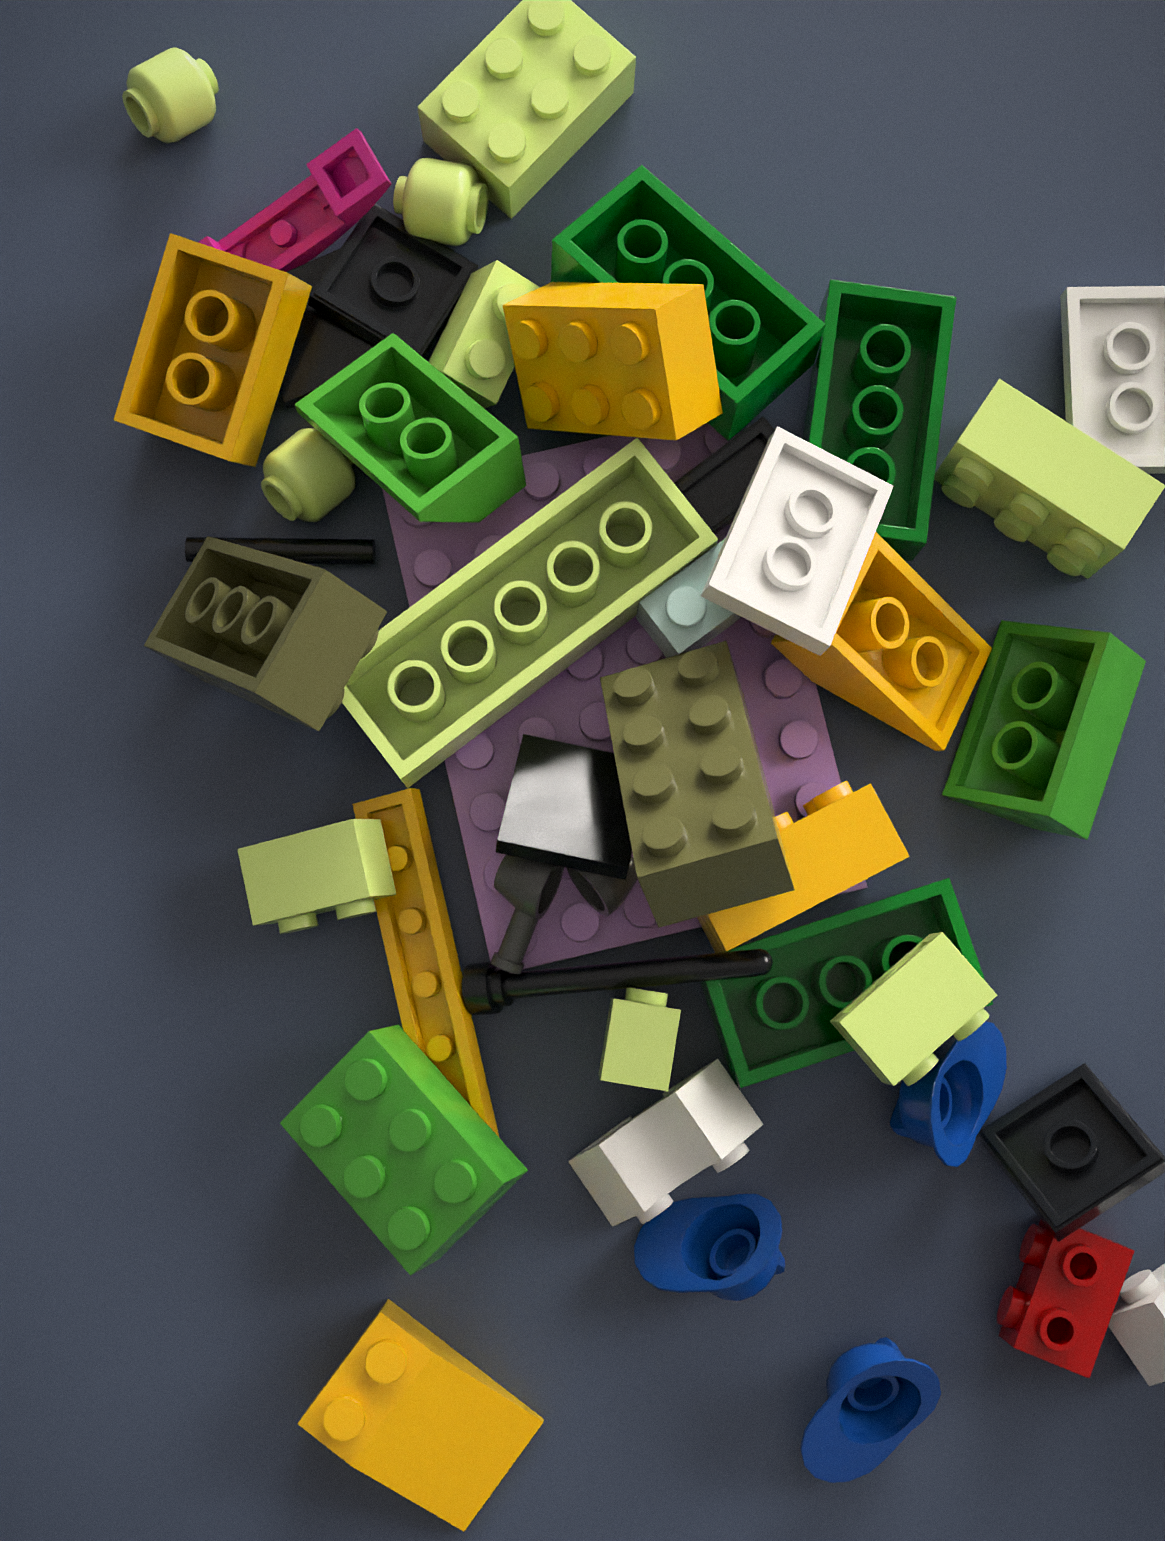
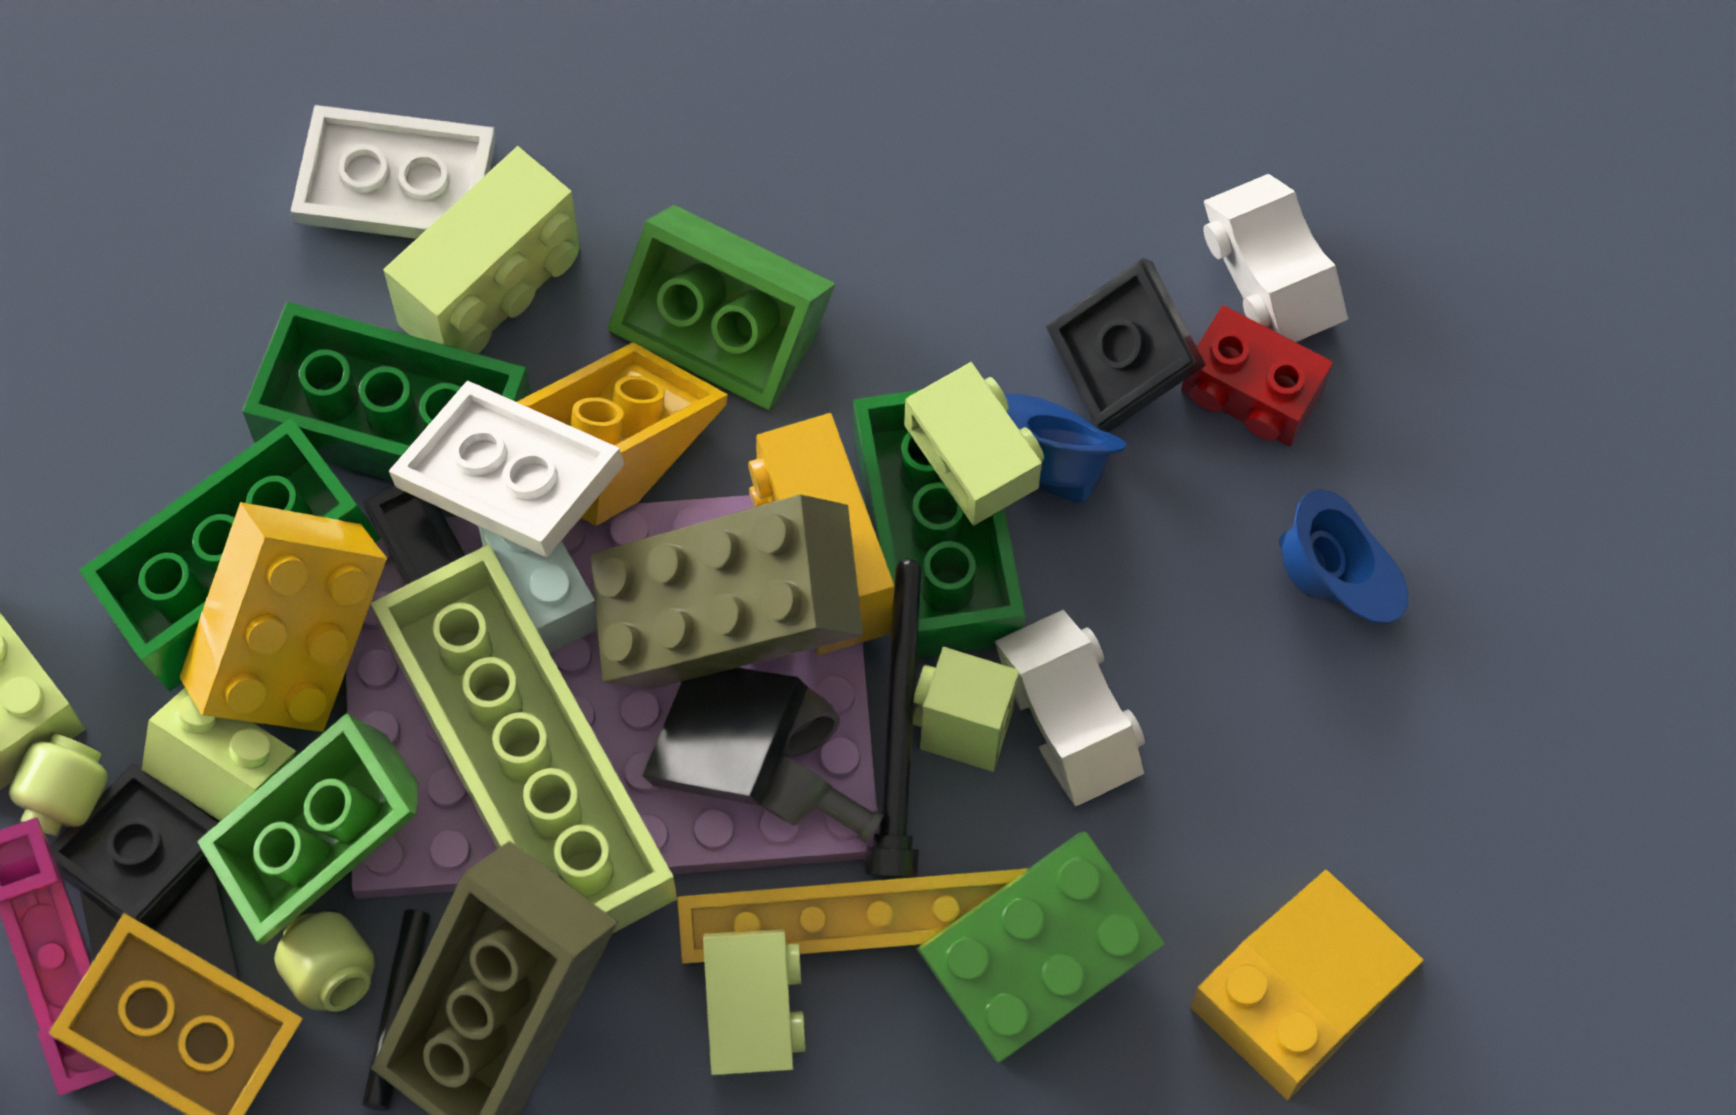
camera: 80 degrees left, 15 degrees down
(712, 1246) = (1173, 676): blue piece -> none

